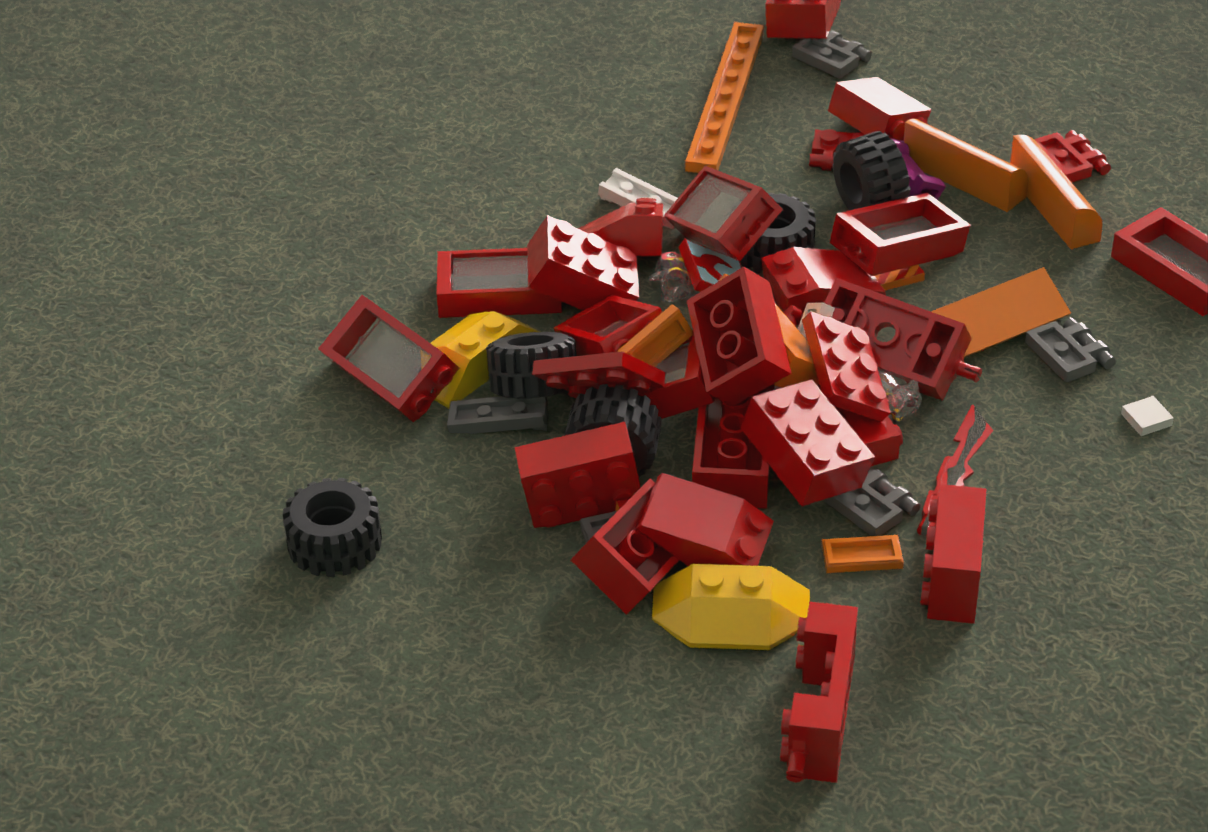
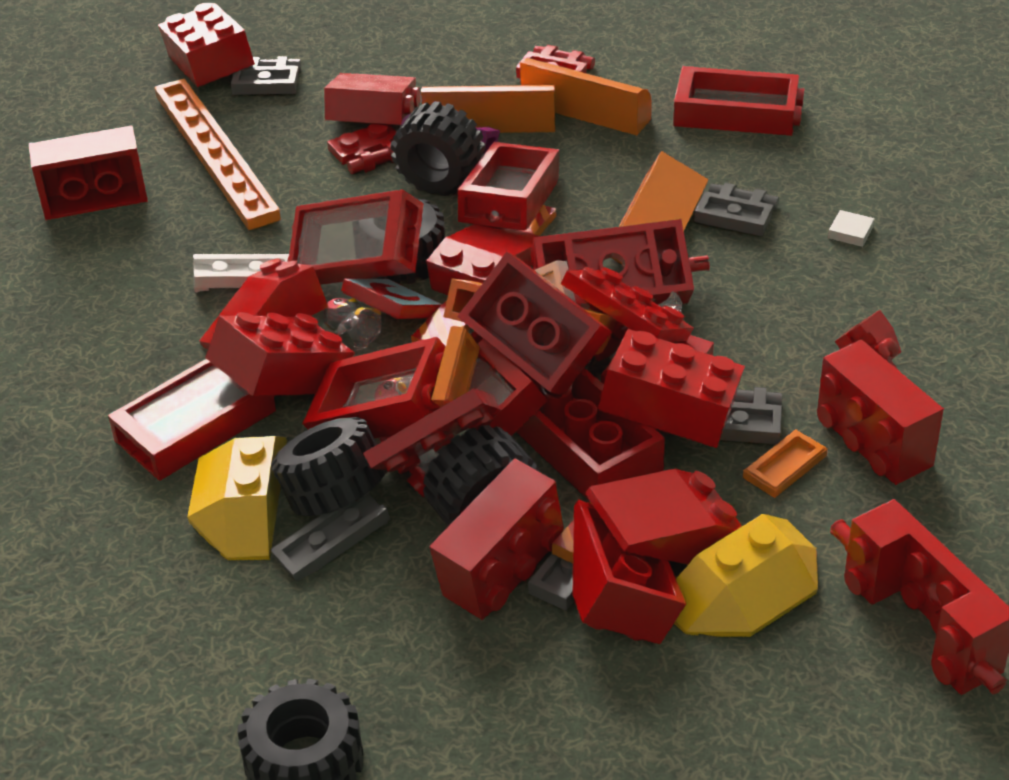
camera: 40 degrees left, 0 degrees up
(389, 358) = (174, 542): red window -> none
(608, 67) = (87, 172): none -> red brick
(955, 469) = (769, 355): sword -> none
(1026, 510) = (876, 333): none -> red piece

